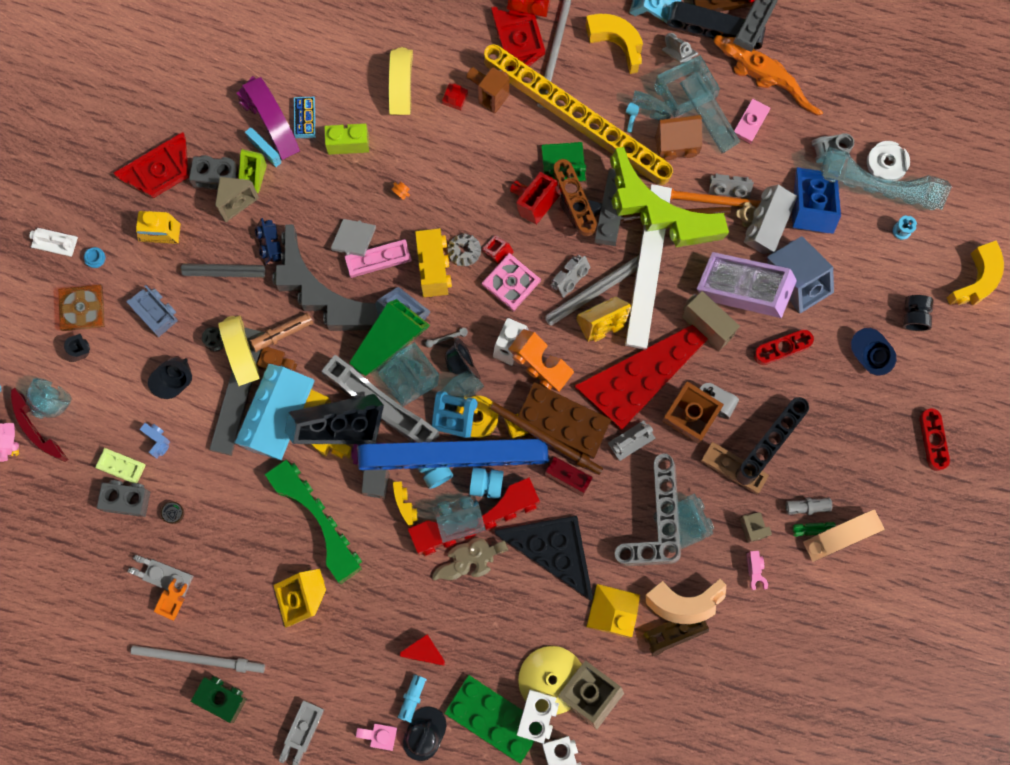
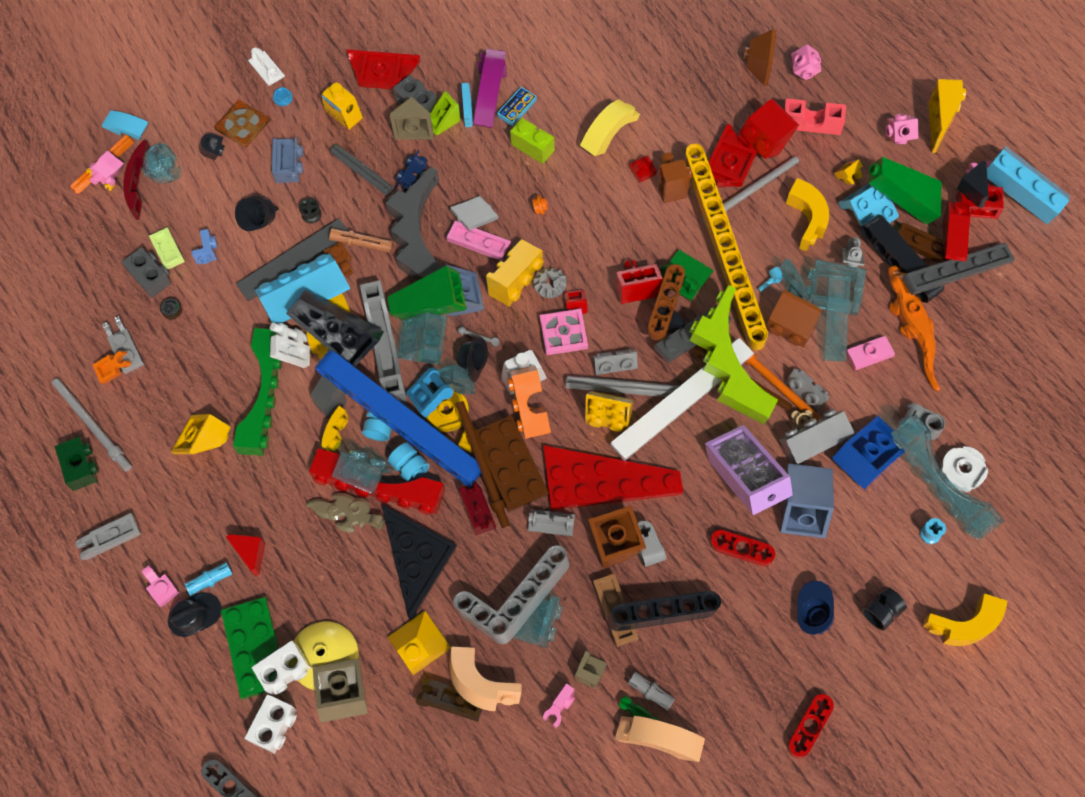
camera: 45 degrees right, 10 degrees down
(238, 350) = (314, 227): light yellow arch -> none
(306, 471) = (289, 350): none -> white plate
(710, 320) = (694, 476): dark tan brick -> none

